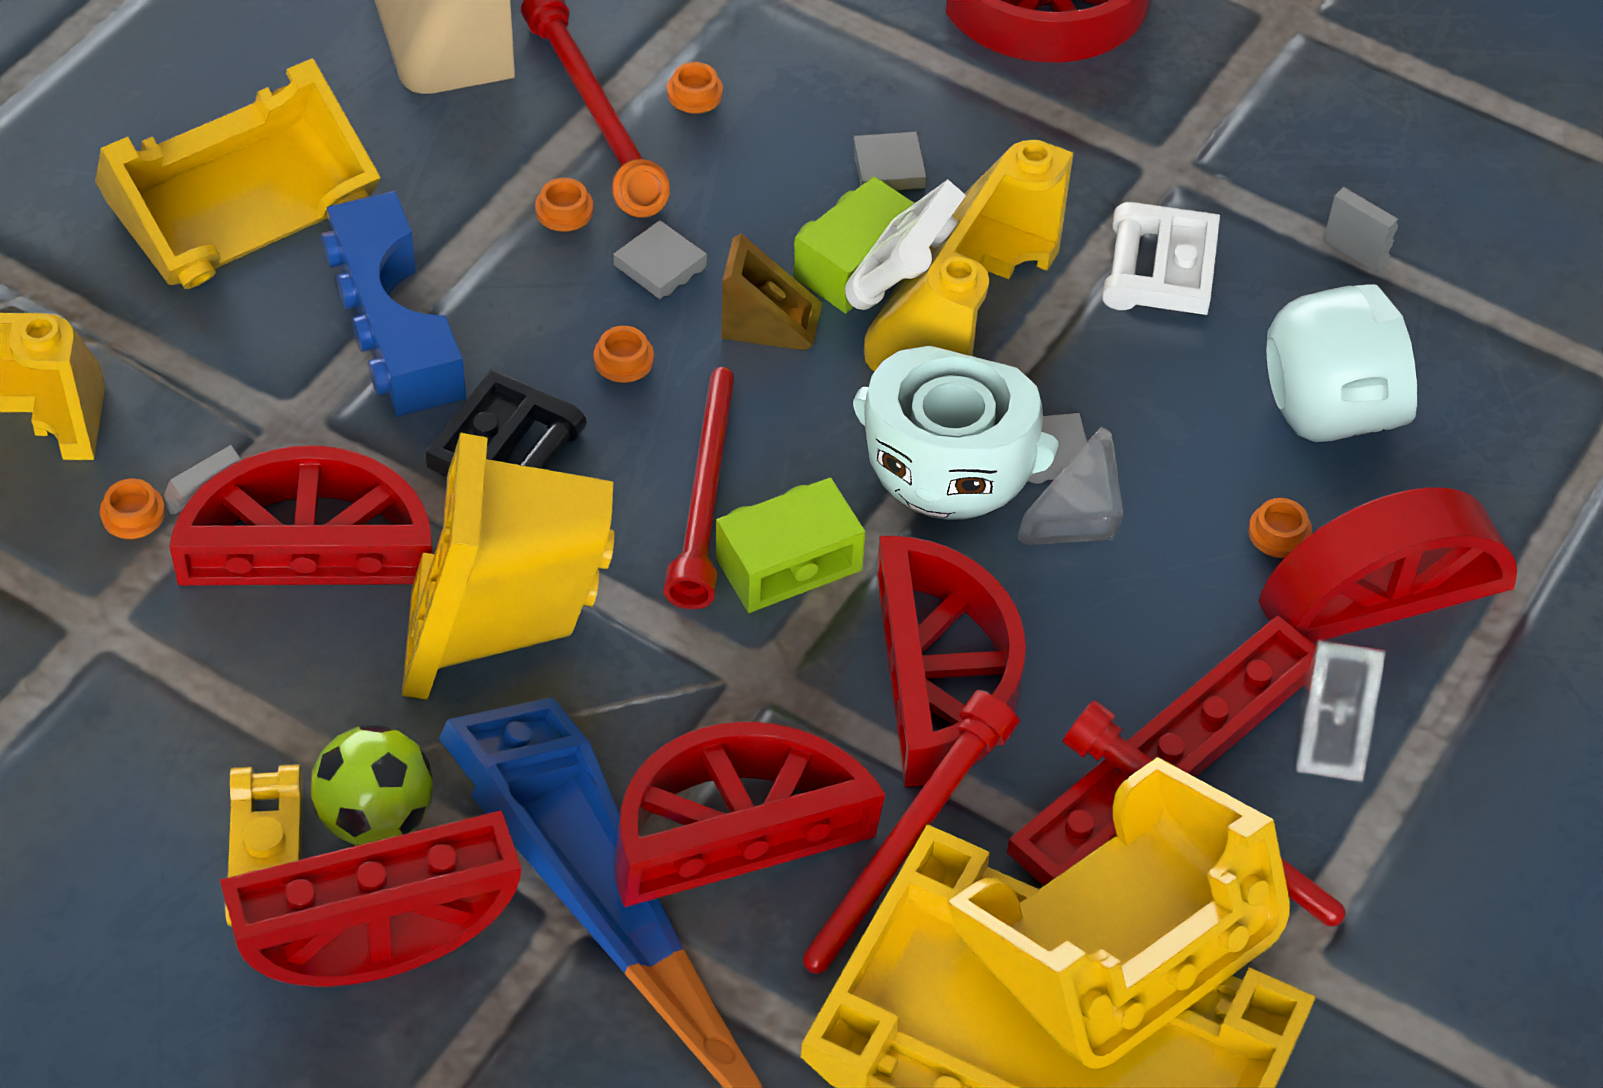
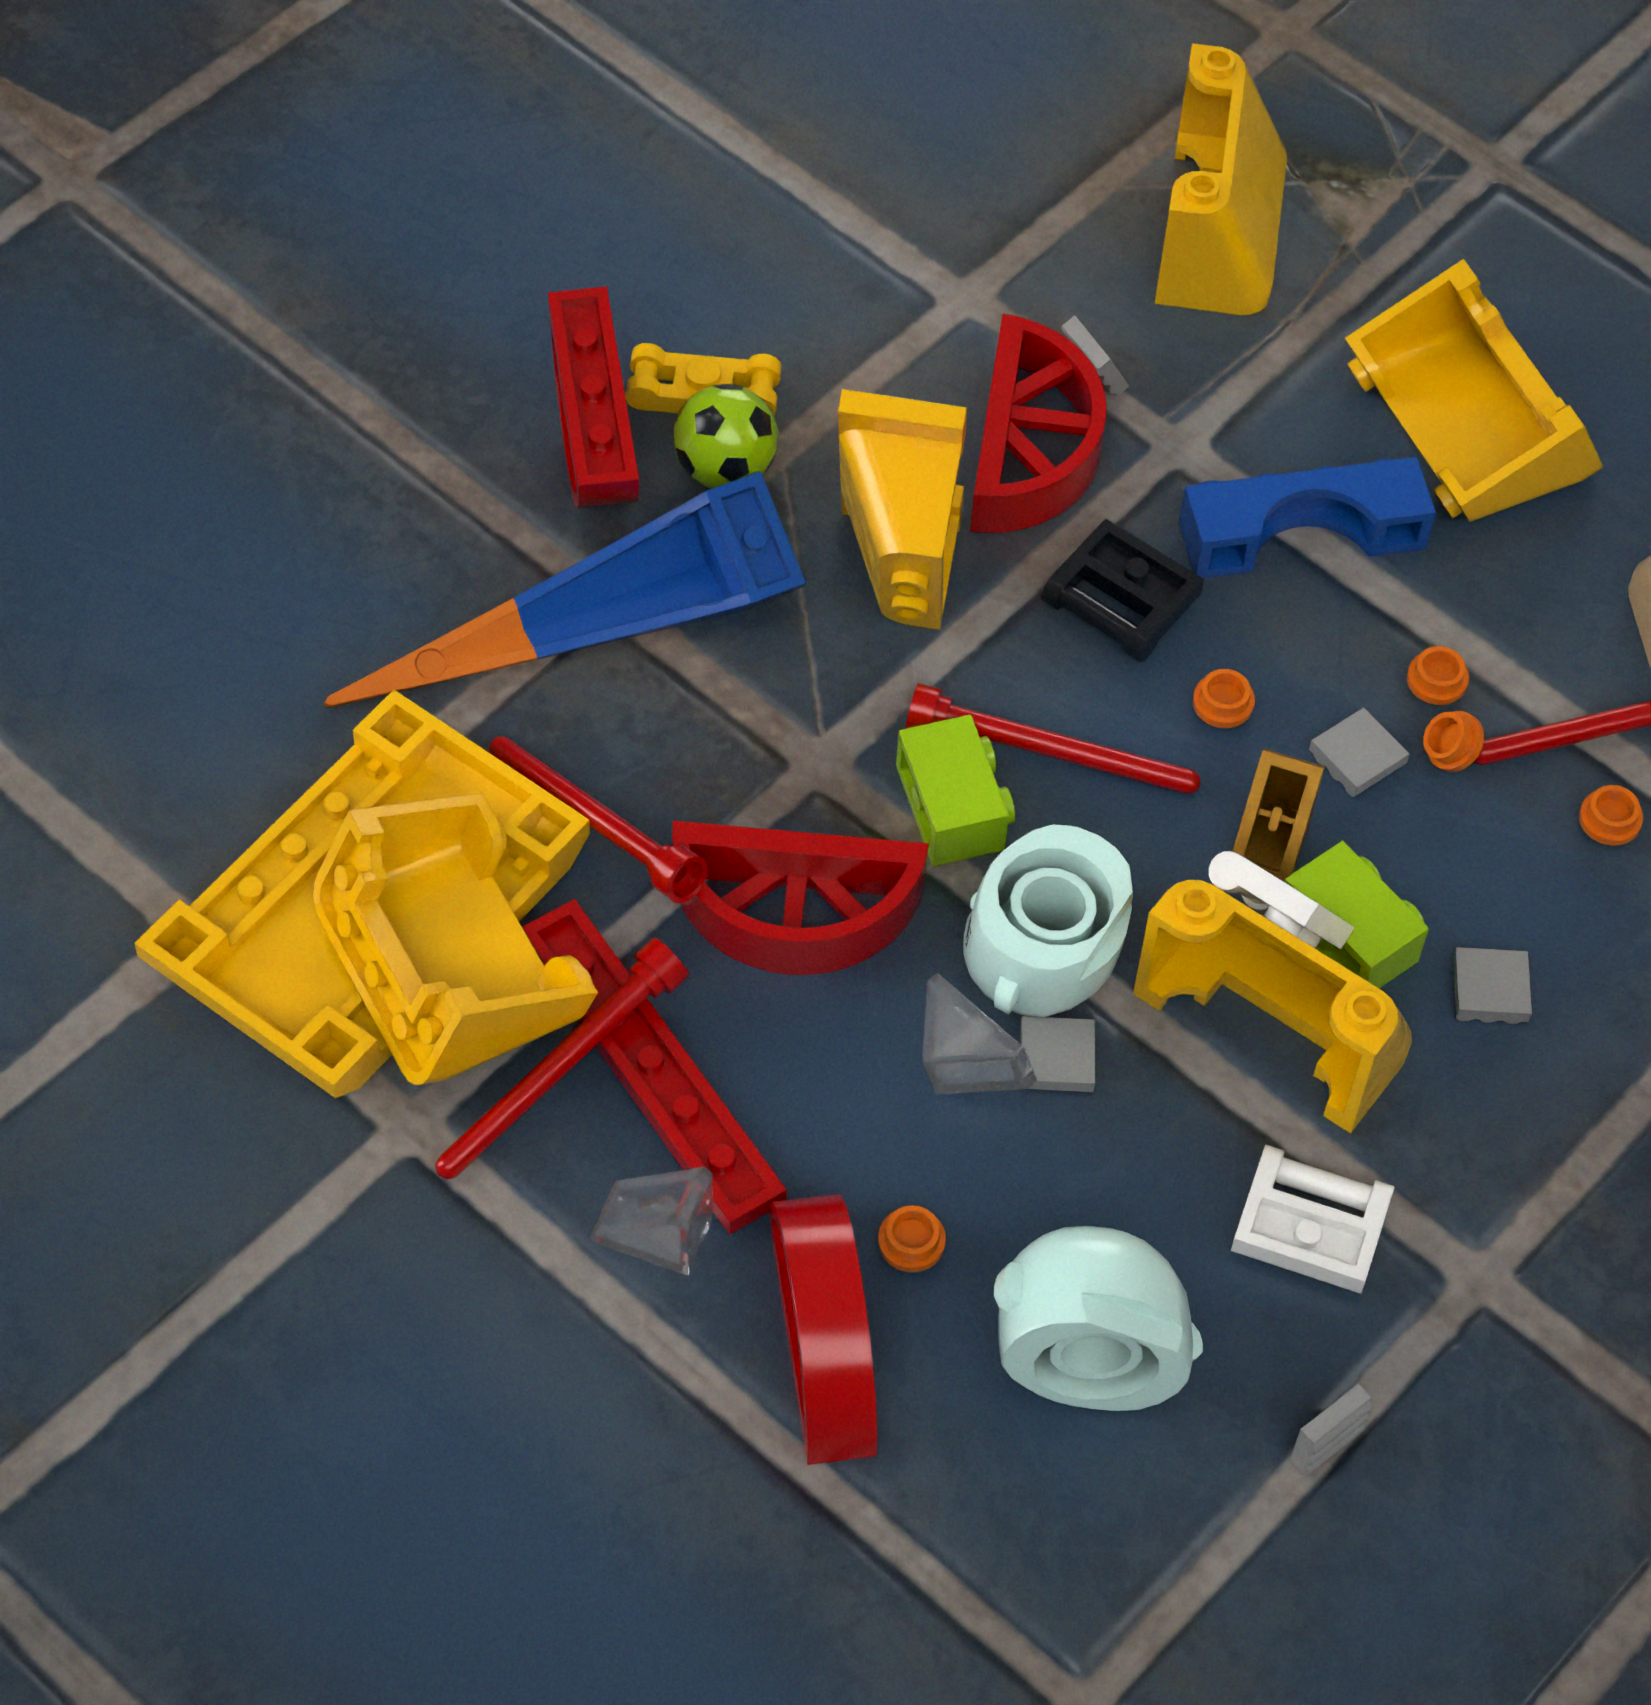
camera: 100 degrees right, 5 degrees up
(132, 509) = (1085, 306): orange plate -> none
(836, 810) = (654, 611): red window -> none

